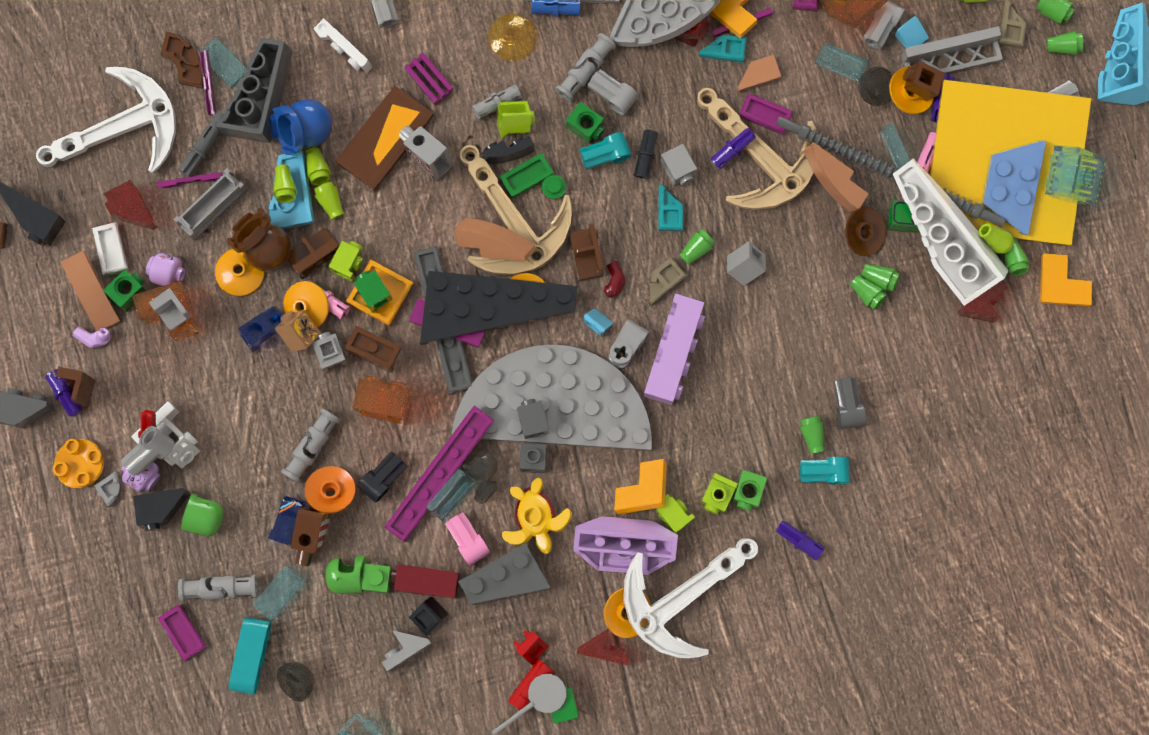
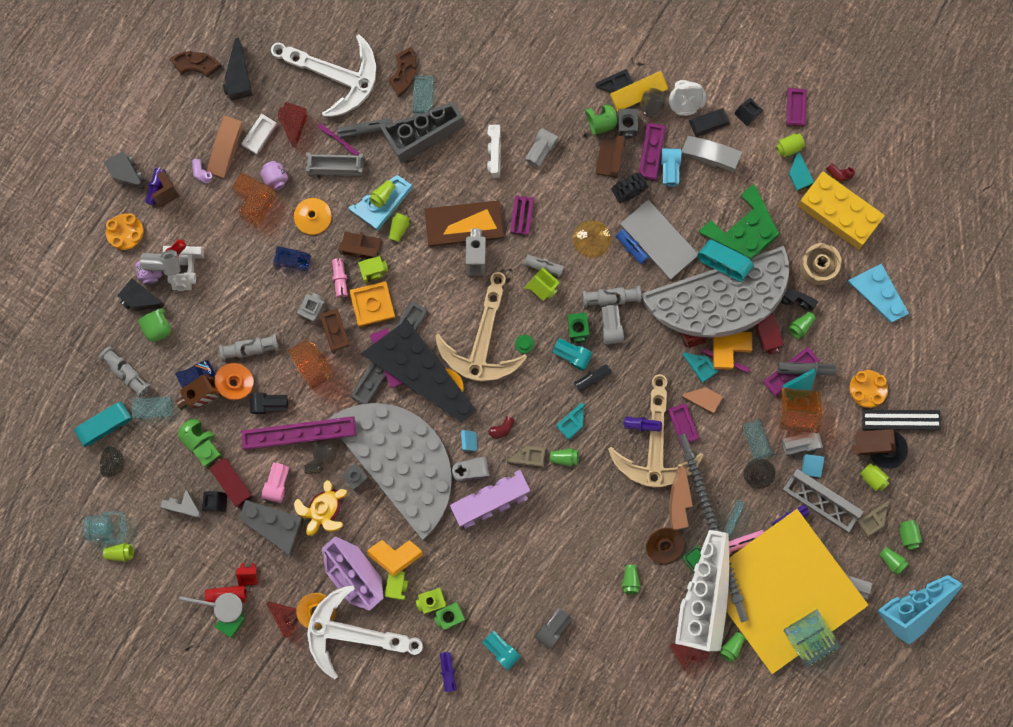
camera: 50 degrees right, 0 degrees up
(109, 488) = (126, 261): light grey tile -> none
(114, 289) = (237, 159): green brick -> none
(170, 309) = (251, 200): light grey panel -> none
(182, 632) = (82, 375): magenta tile -> none
(209, 96) = (403, 96): magenta piece -> none
(262, 242) = (337, 212): reddish brown tile -> none
(297, 330) = (306, 279): medium nougat brick -> none
(300, 125) = (426, 172): blue tile -> none
(312, 298) = (331, 273): light orange dish -> none
(317, 168) = (410, 202): lime cone -> none
(372, 290) = (367, 299): green brick -> none
(450, 495) = (292, 450): clear light blue tile -> none
(493, 240) = (458, 339): nougat slope -> none
(499, 153) = (514, 294): black slope -> none
(526, 175) = (516, 322): green tile -> none
(532, 418) = (376, 456): dark grey brick -> none
(587, 253) = (502, 398): reddish brown panel -> none
(678, 165) = (603, 403): light grey brick -> none
(746, 263) = (581, 494): light grey panel -> none
(813, 433) = (517, 623): bright green cone -> none
(881, 276) = (647, 579): bright green cone -> none
(909, 104) = (784, 500): light orange dish -> none
(923, 80) = (792, 499): reddish brown brick -> none
(998, 239) = (732, 627): lime cone -> none
(1014, 183) = (774, 606): medium blue wing -> none
(1058, 289) = (738, 689): light orange tile -> none

